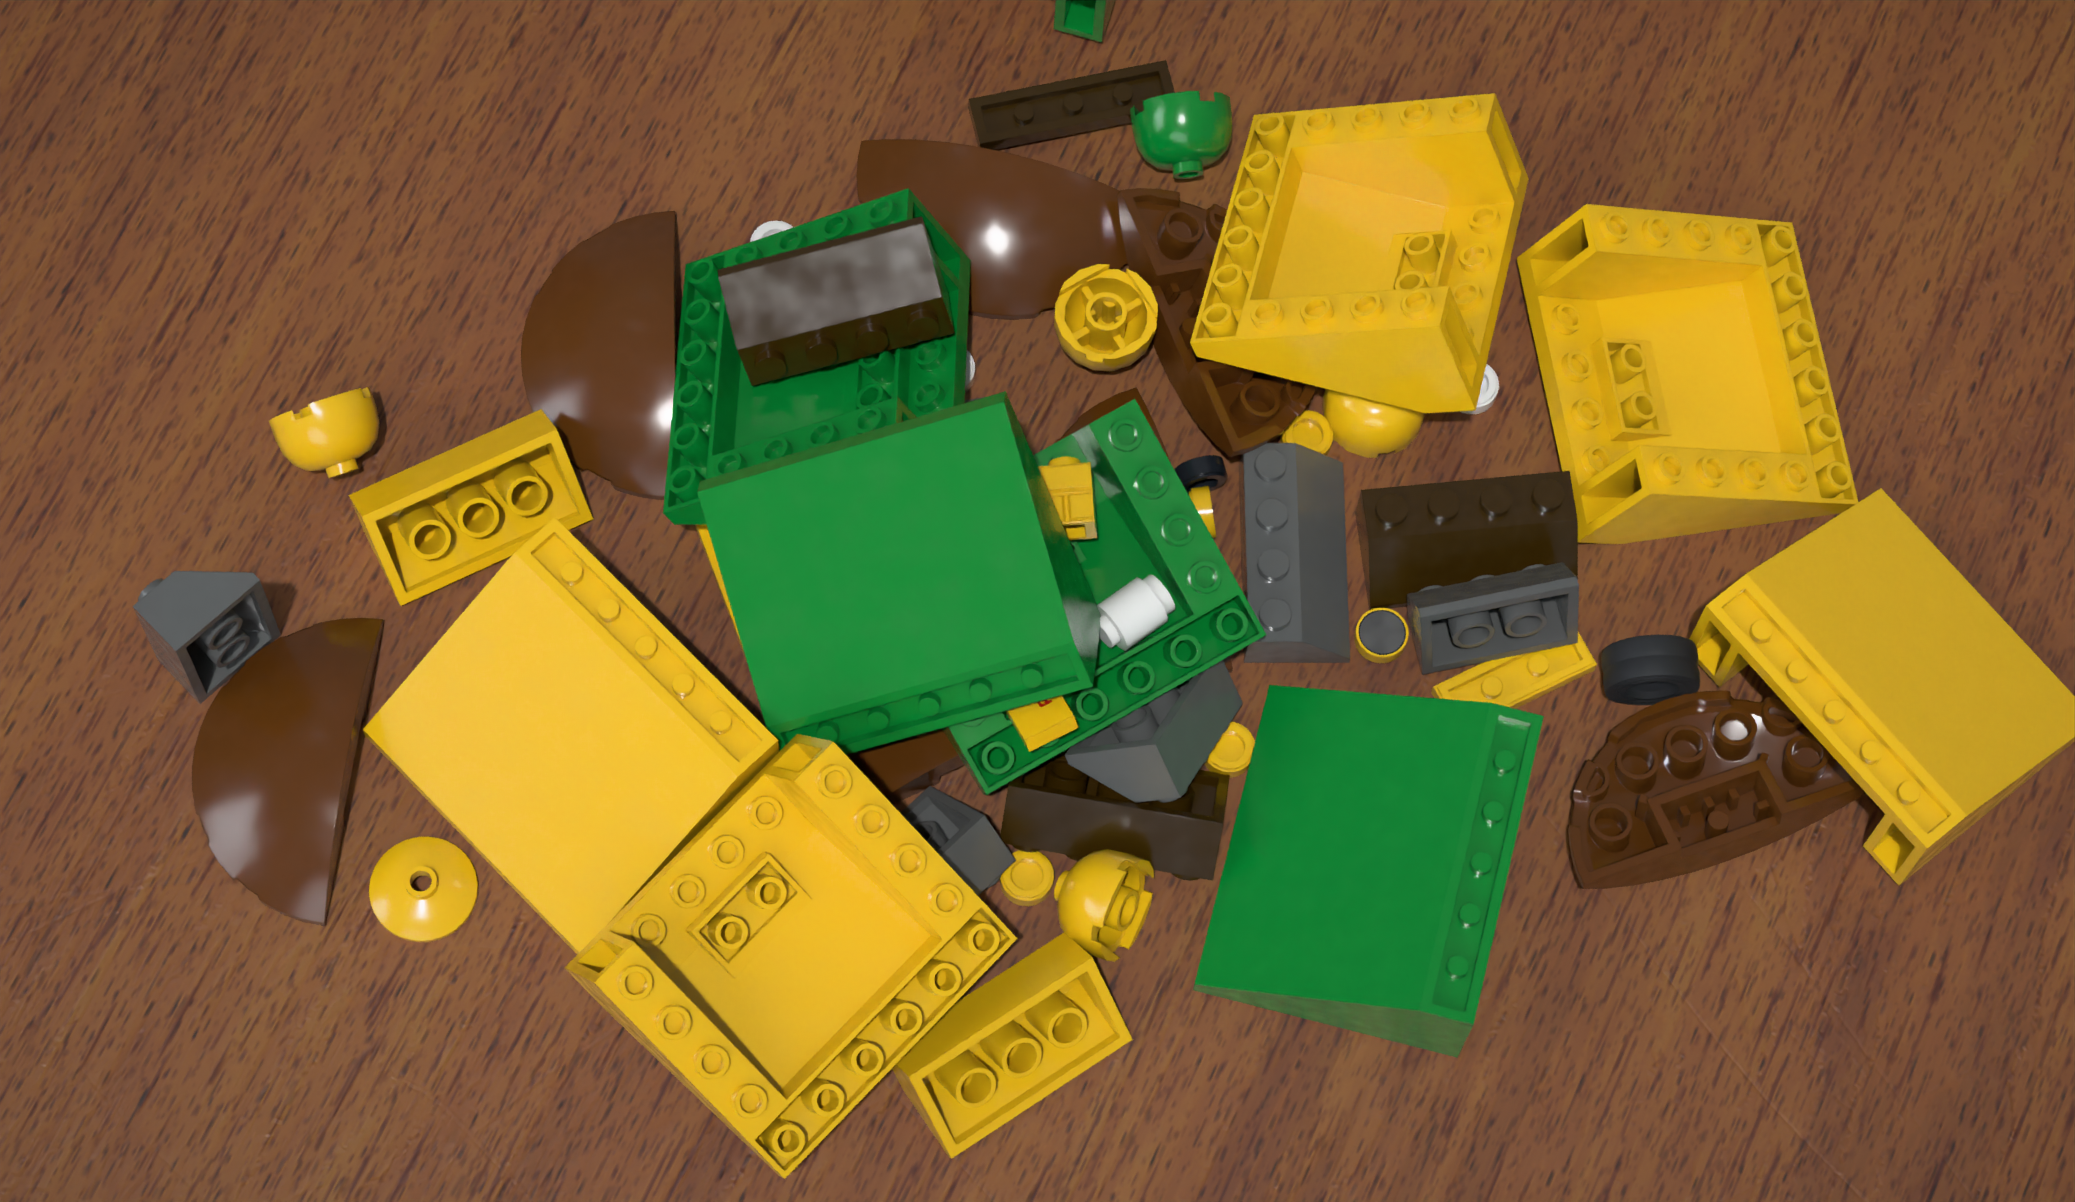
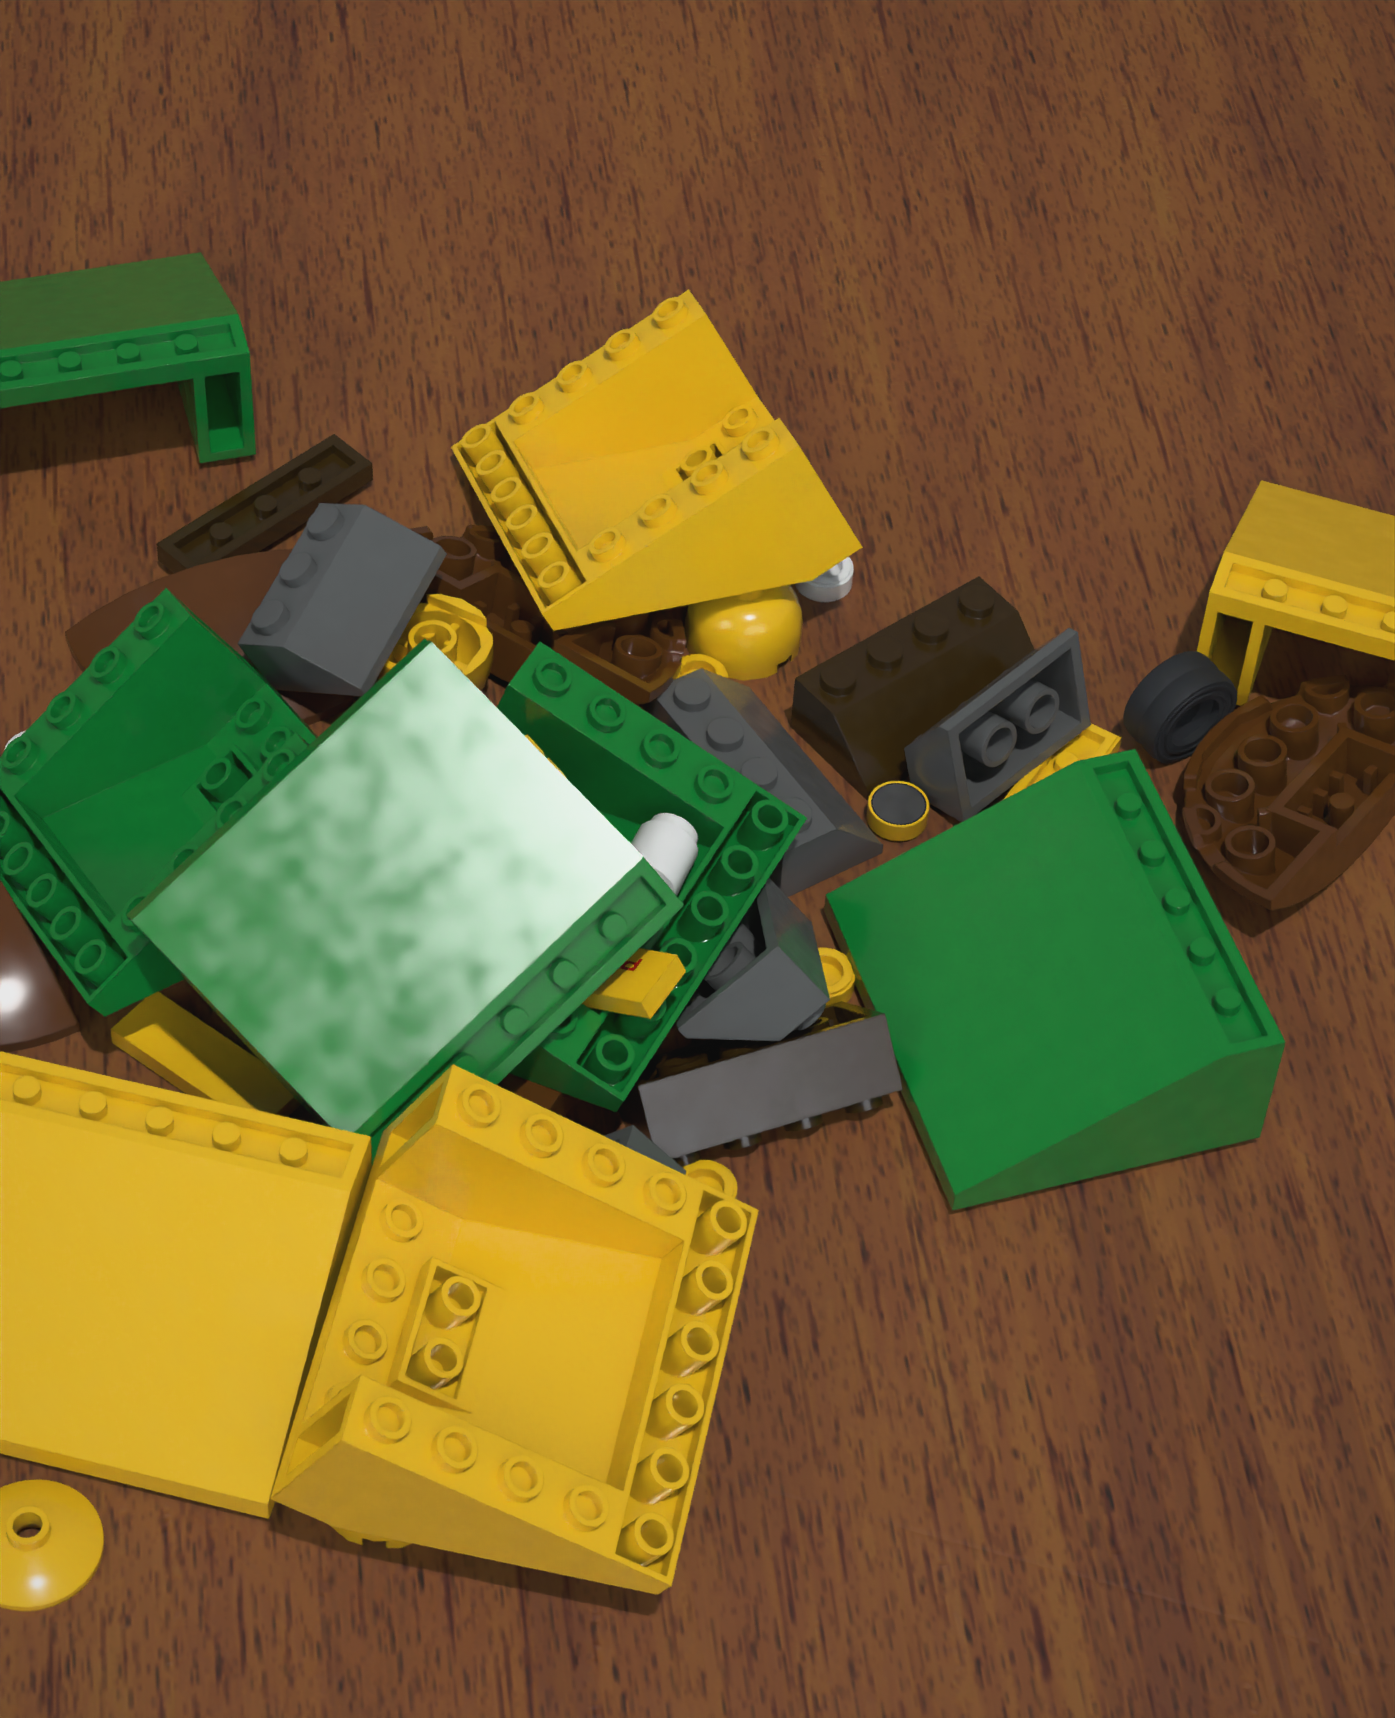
camera: 30 degrees left, 20 degrees down
(836, 301) = (150, 728): dark brown slope -> none
(1011, 1044) = (808, 1351): yellow slope -> none
(1052, 247) = (340, 601): none -> dark grey slope
(1104, 901) = (803, 1162): yellow cylinder -> none
(1183, 132) = (395, 470): green cylinder -> none
(1683, 374) = (1009, 469): yellow slope -> none

